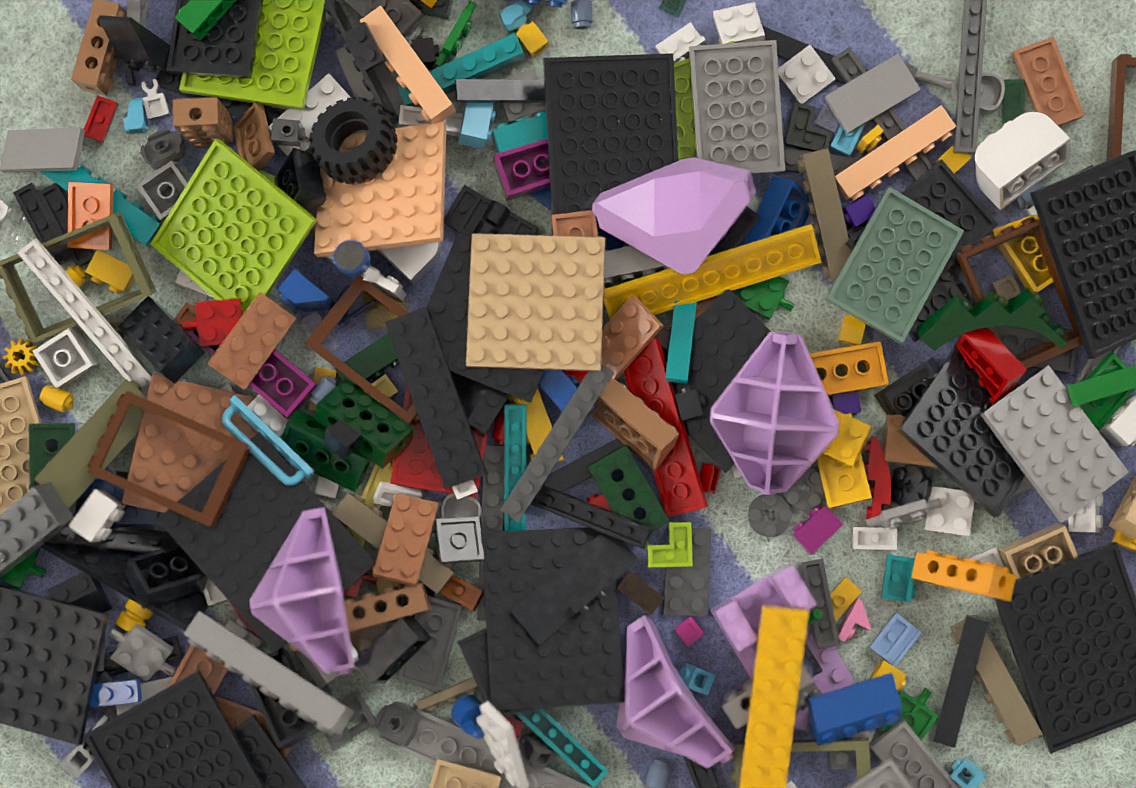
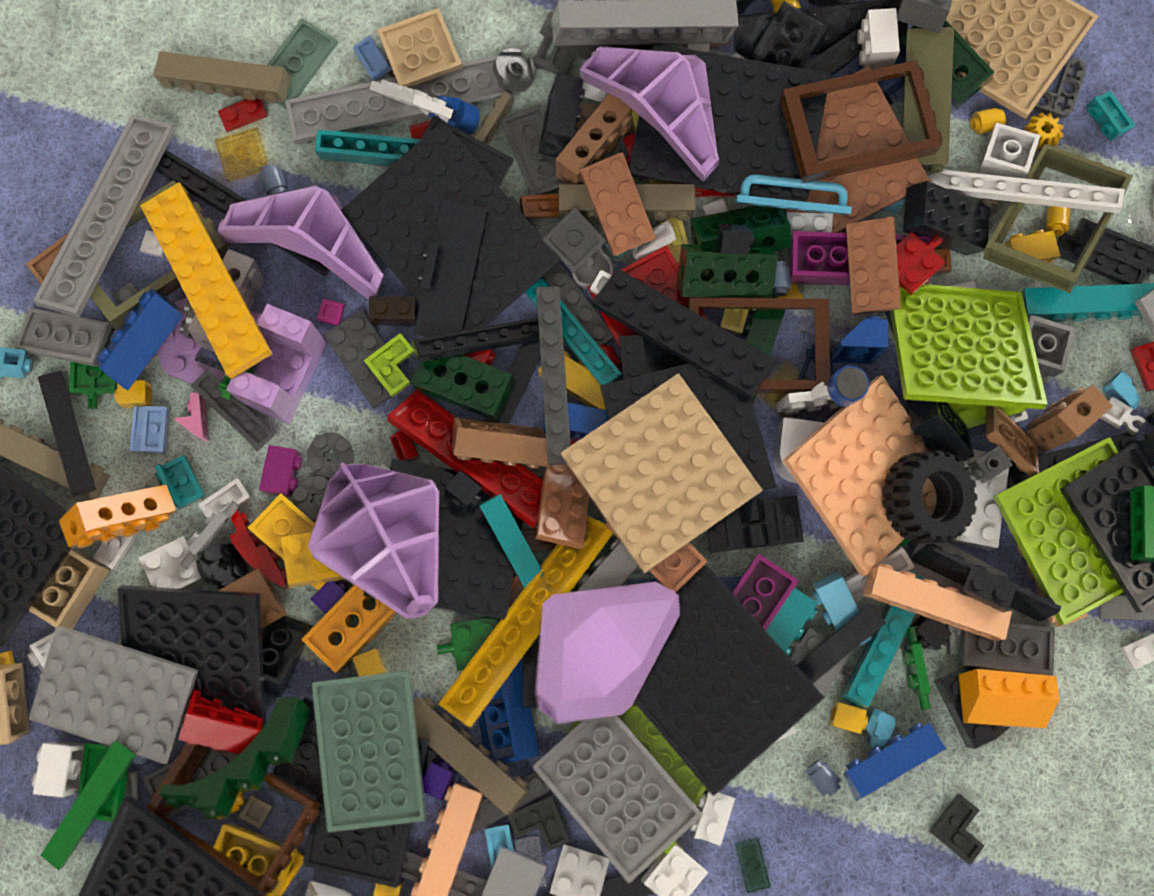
camera: 140 degrees right, 5 degrees down
(86, 205) = (1099, 281): orange plate -> none
(159, 157) = (1078, 369): dark grey plate -> none
(535, 751) = (387, 125): dark grey rock -> none
(693, 677) = (300, 272): medium azure brick -> none
(843, 596) = (219, 433): yellow plate -> none
(870, 140) = (474, 856): yellow plate -> none

